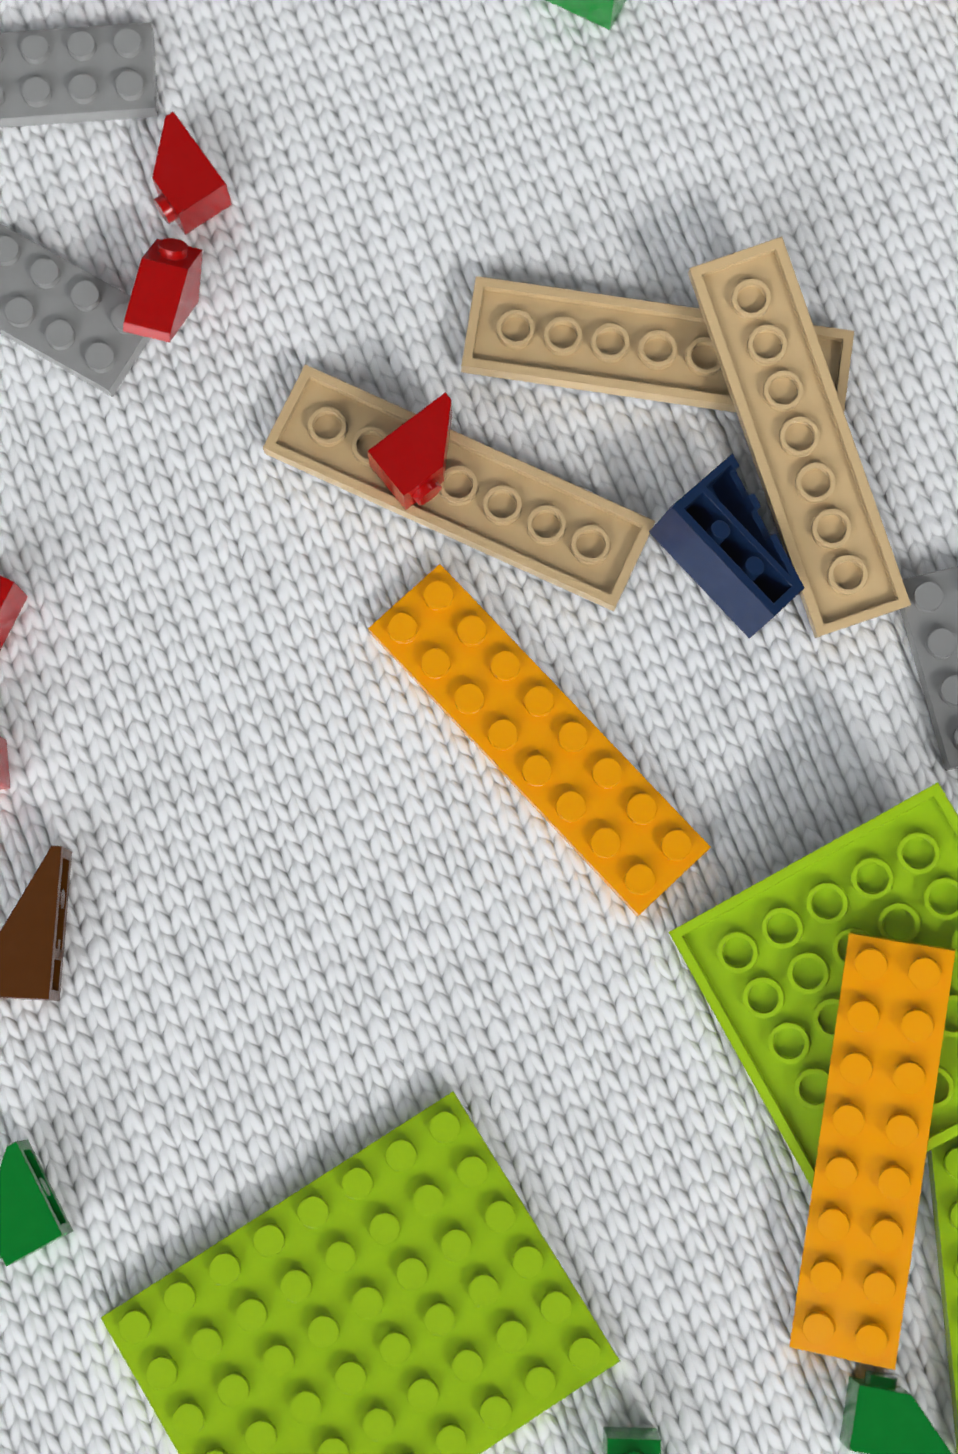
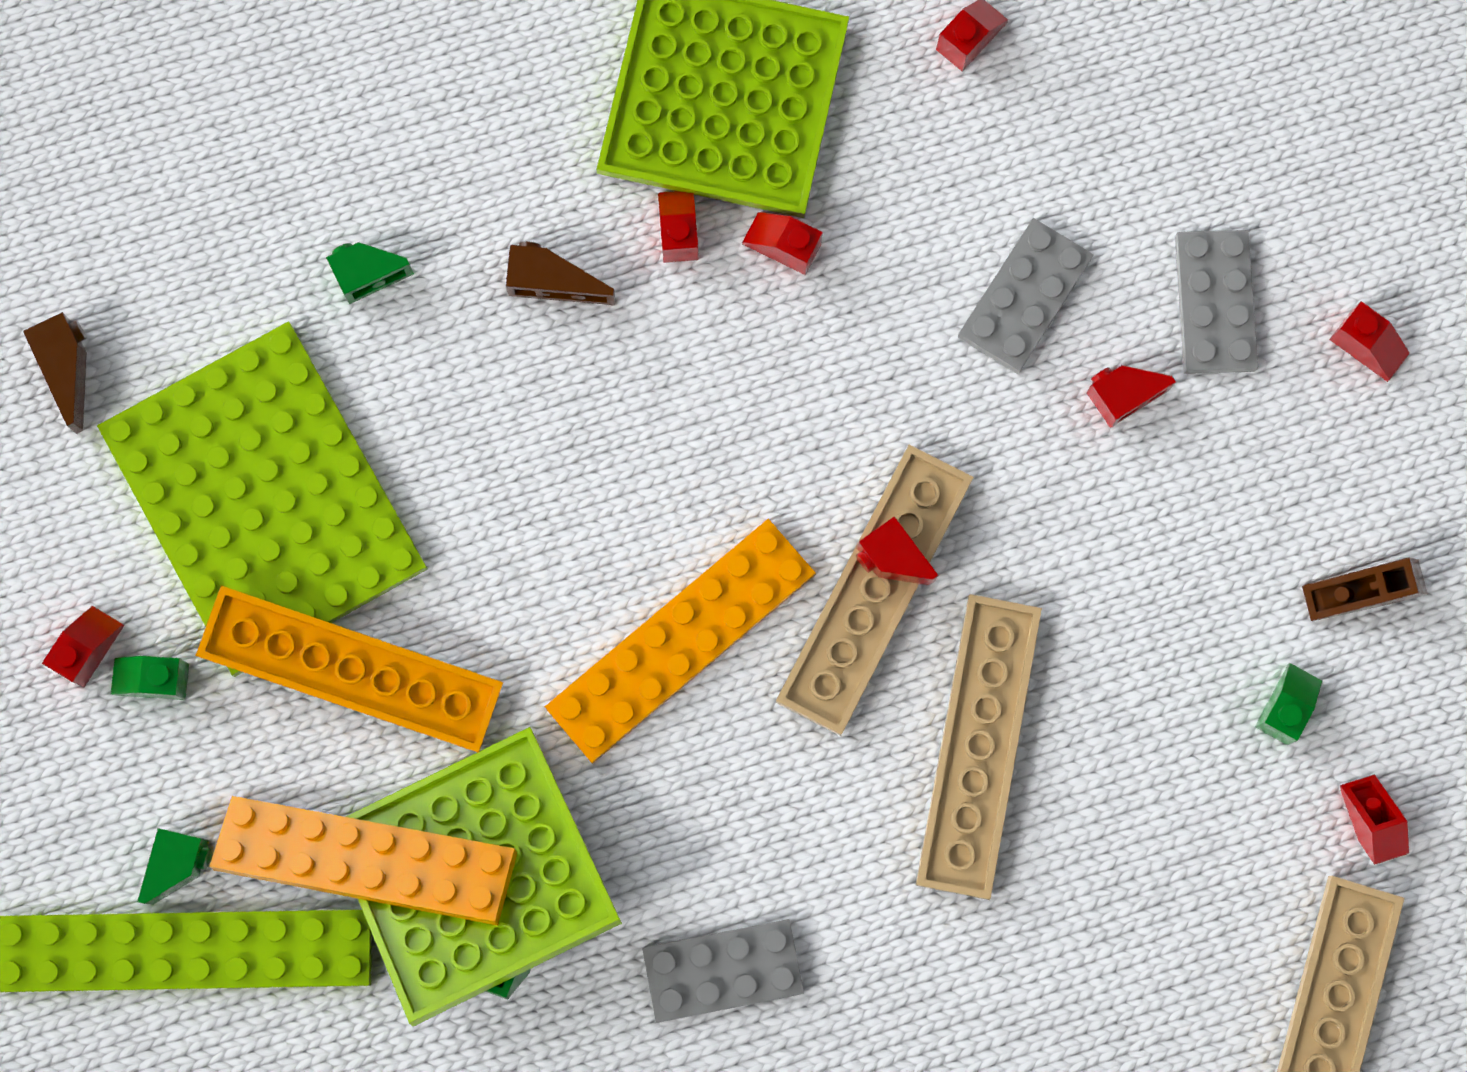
camera: 90 degrees right, 0 degrees up
(164, 290) = (1029, 372): red slope -> none
(604, 1194) = (349, 669): none -> light orange plate
(728, 549) = (816, 787): dark blue wedge -> none
(798, 437) = (901, 846): tan plate -> none

